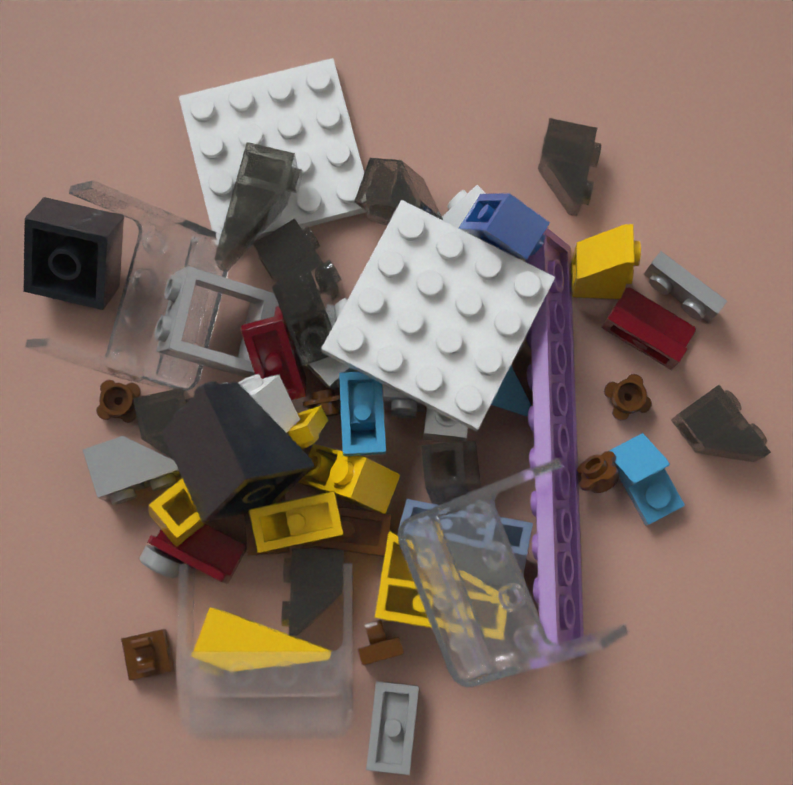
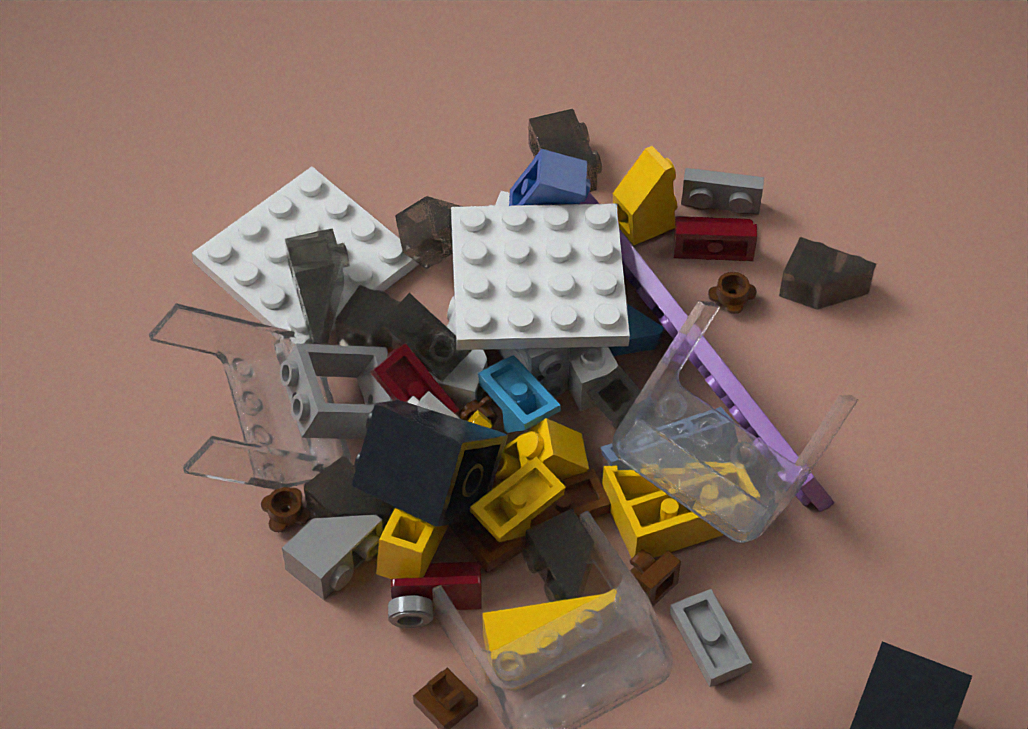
camera: 30 degrees left, 25 degrees down
(72, 253) = (176, 399): black brick -> none
(598, 473) = (748, 354): reddish brown plate -> none
(645, 479) = (782, 340): dark azure slope -> none

